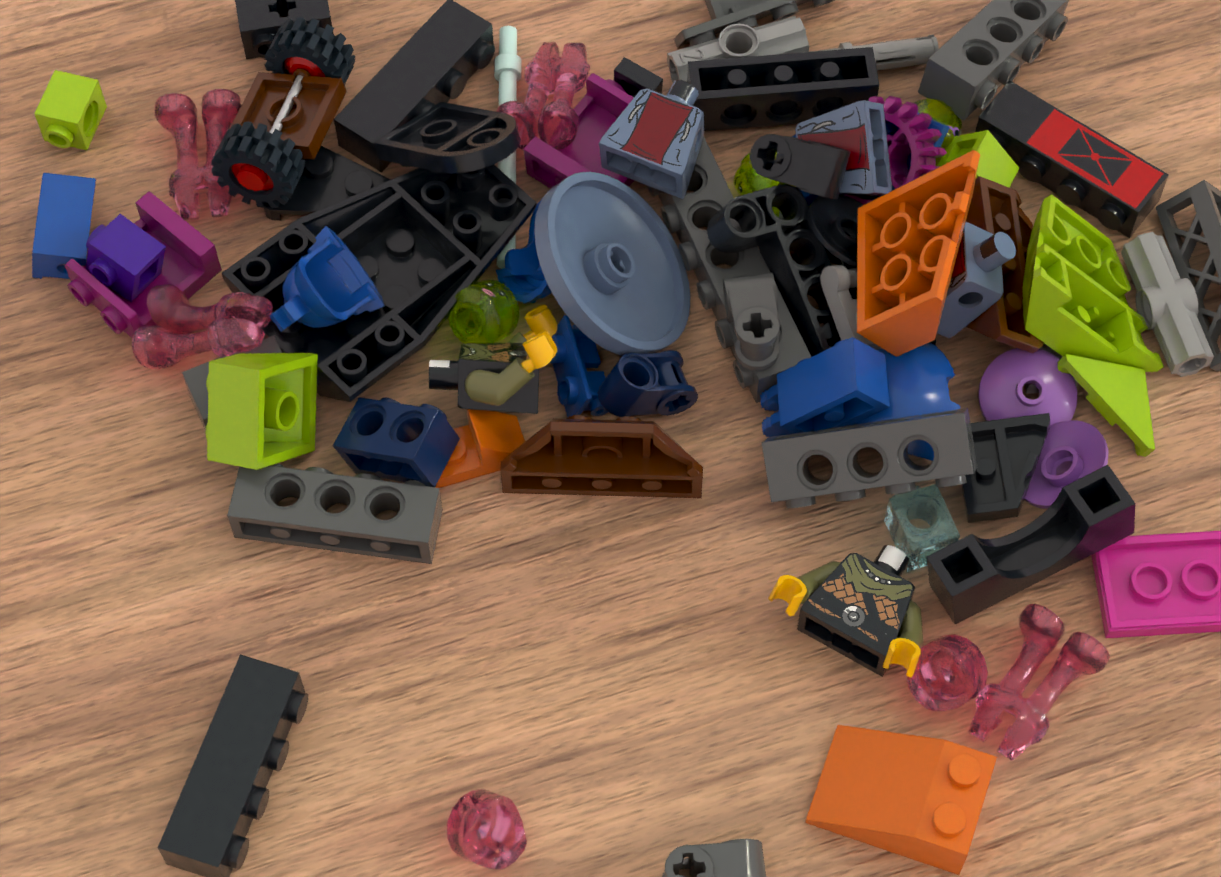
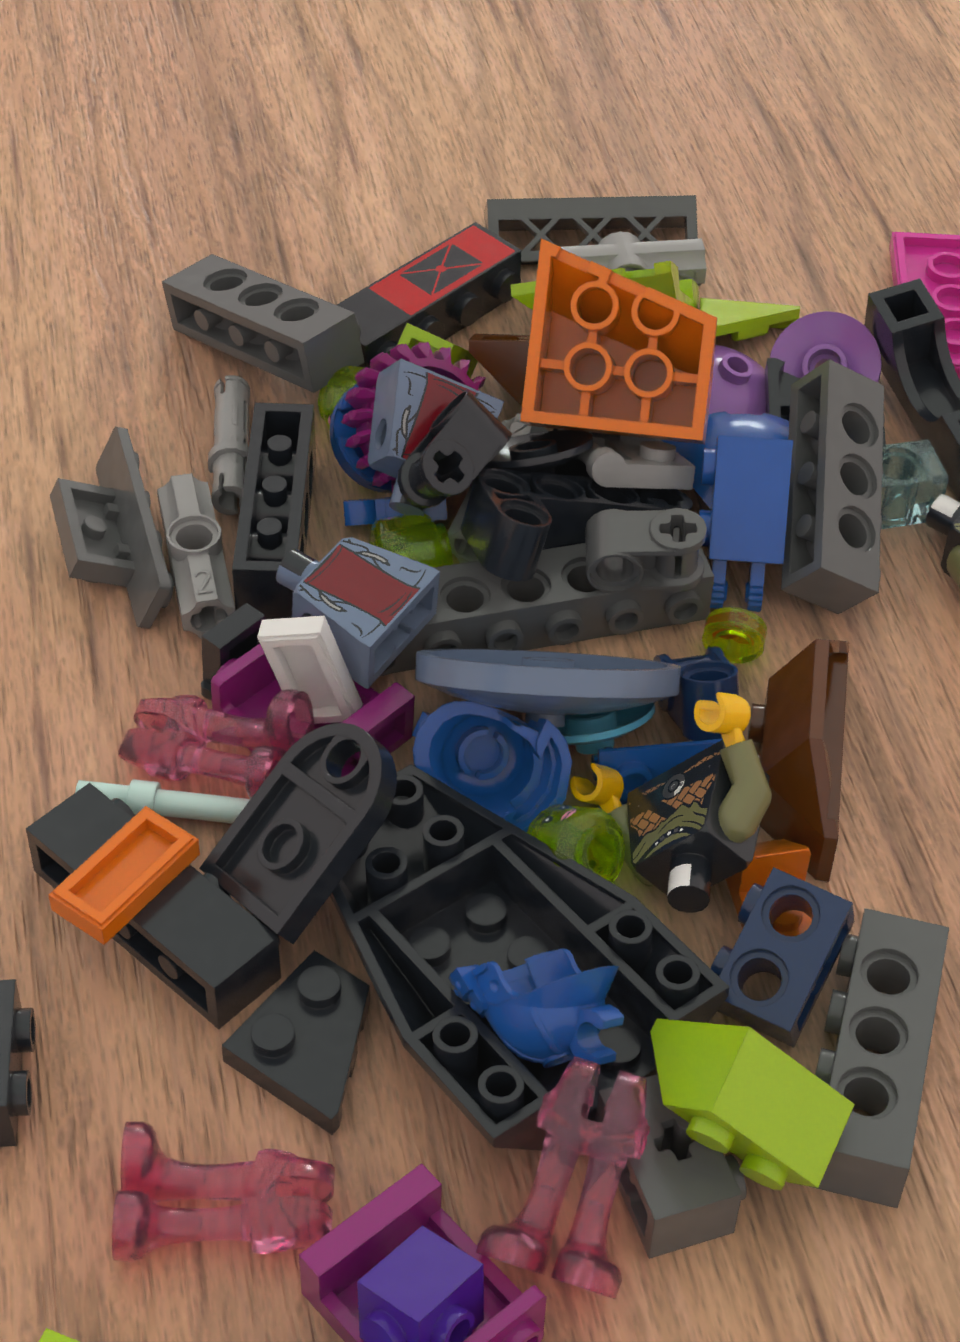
camera: 85 degrees left, 15 degrees down
(285, 113) = (189, 1050): plate -> none
(411, 53) = (124, 875): none -> orange tile
(594, 118) = (309, 660): none -> white tile
(719, 410) = (736, 632): none -> clear neon green tile

